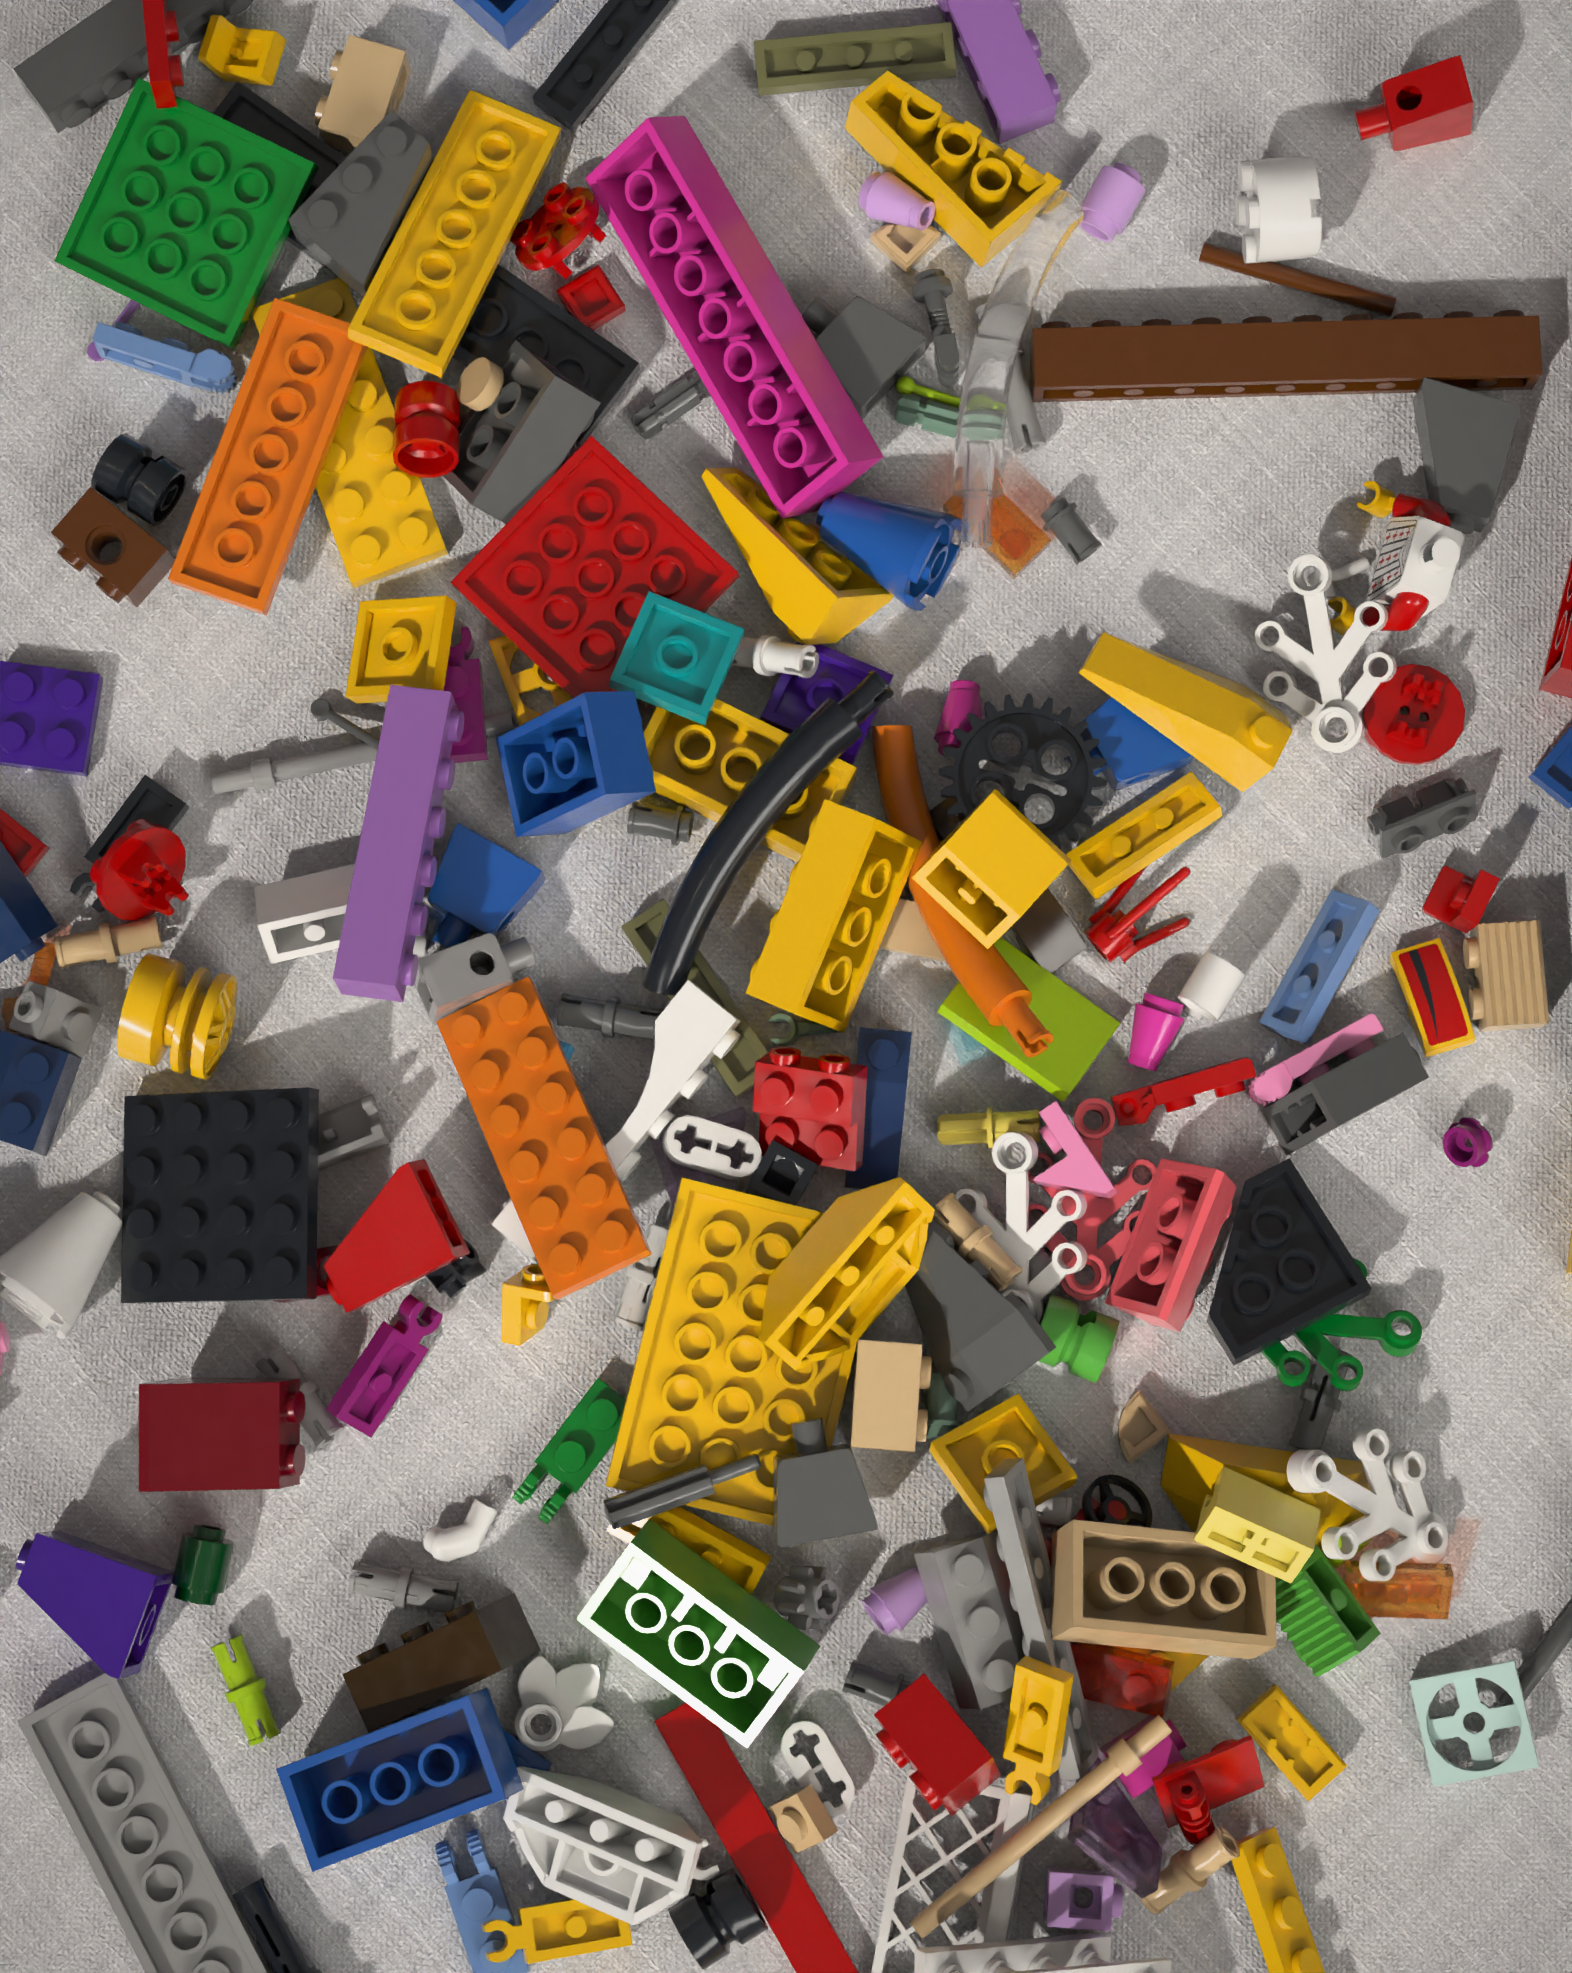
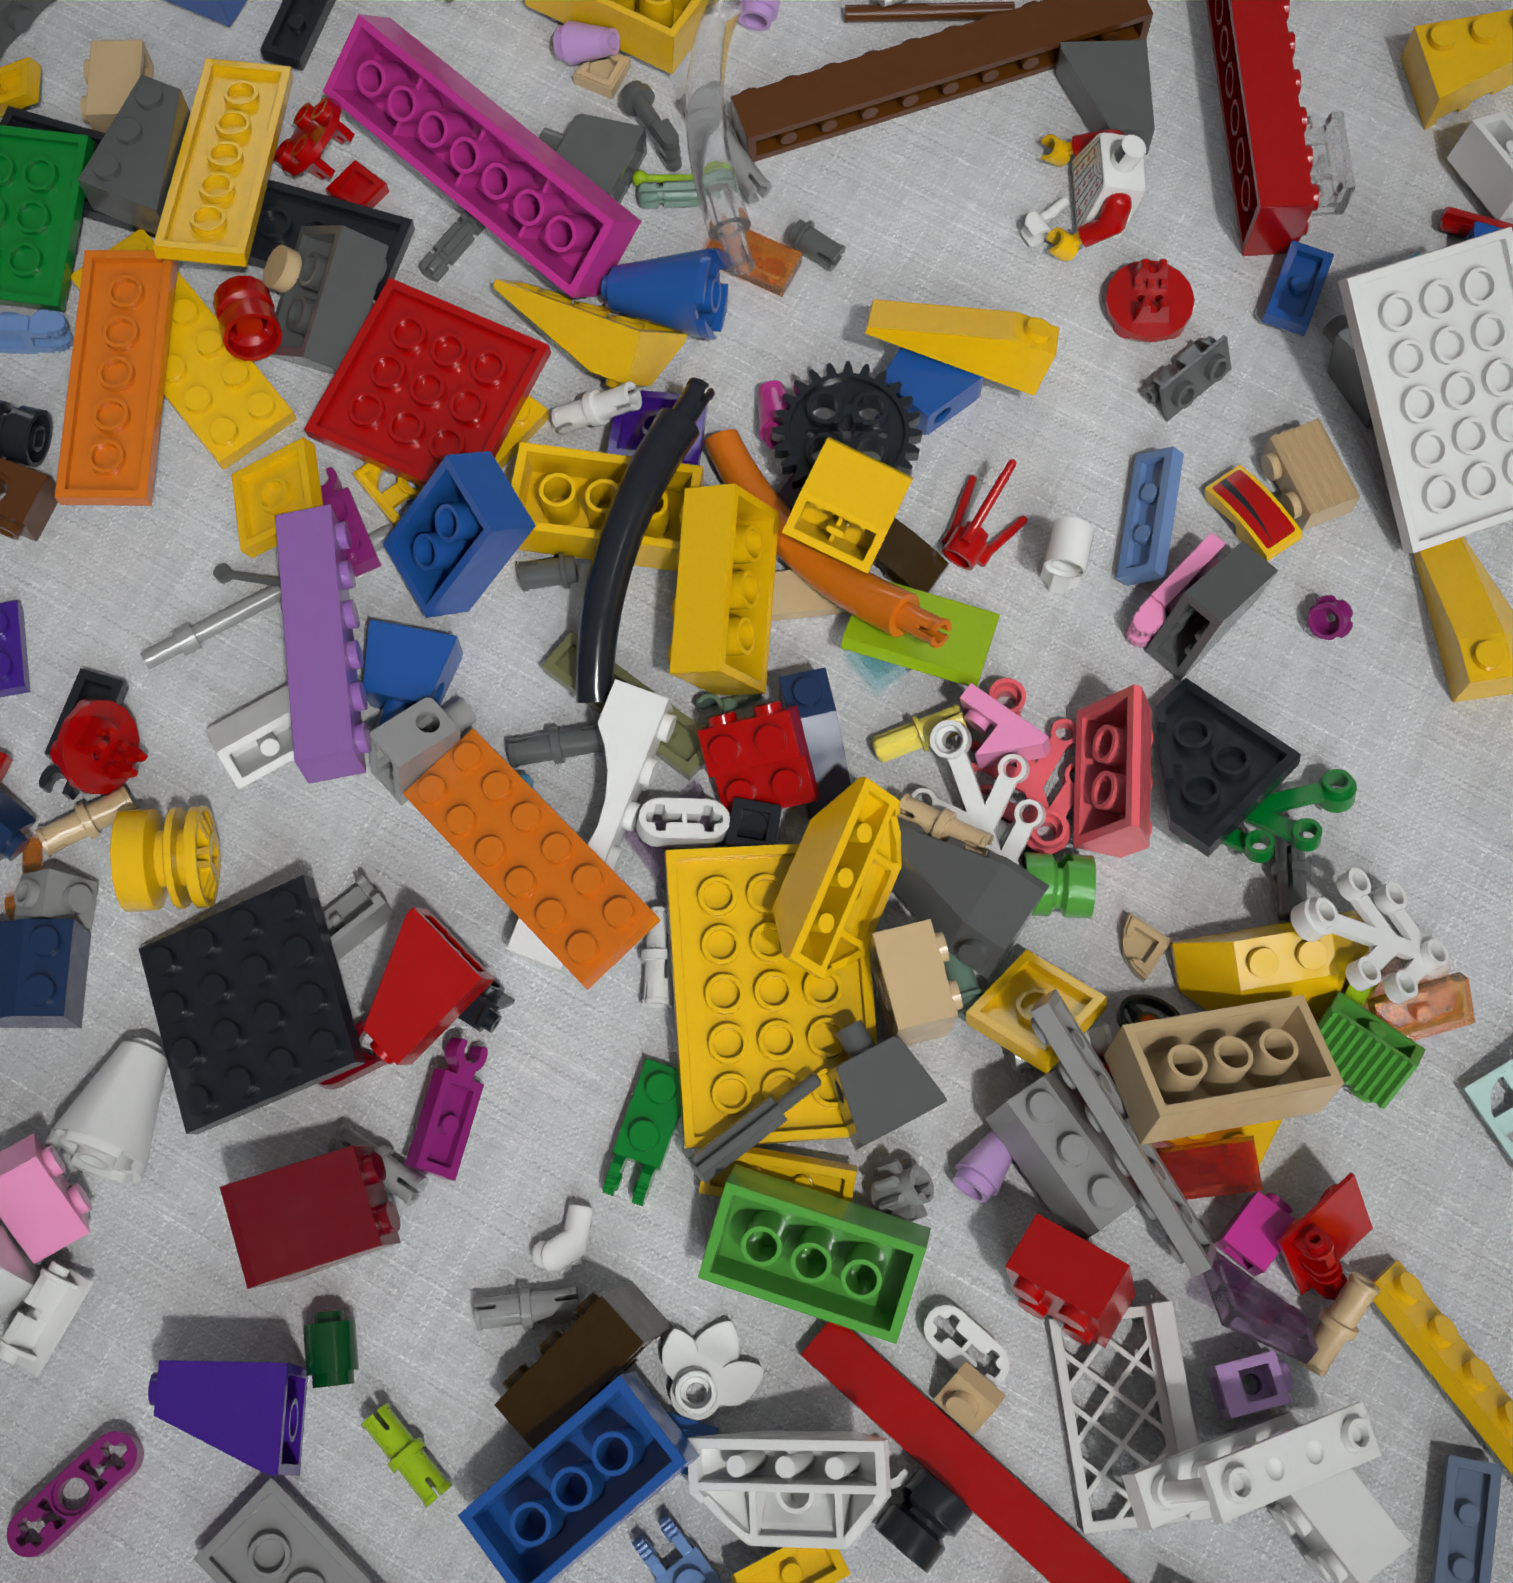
camera: 20 degrees left, 10 degrees down
(524, 1305) = (558, 1011): yellow bracket -> none
(676, 658) = (519, 420): teal plate -> none
(873, 1684) = (988, 1251): dark grey pin -> none
(1036, 1725) = (1155, 1228): yellow plate -> none
(1122, 1758) = (1243, 1236): tan bar -> none
(1143, 835) = (963, 458): yellow plate -> none
(1153, 1030) = (1030, 609): dark pink cone -> none
(1178, 1092) = (1071, 651): red hinge -> none
(1258, 1525) = (1286, 982): light yellow hinge -> none
(1291, 1742) = (1384, 1177): yellow plate -> none
(1326, 662) = (1064, 278): white plant -> none
(1459, 898) = (1247, 428): red bracket -> none

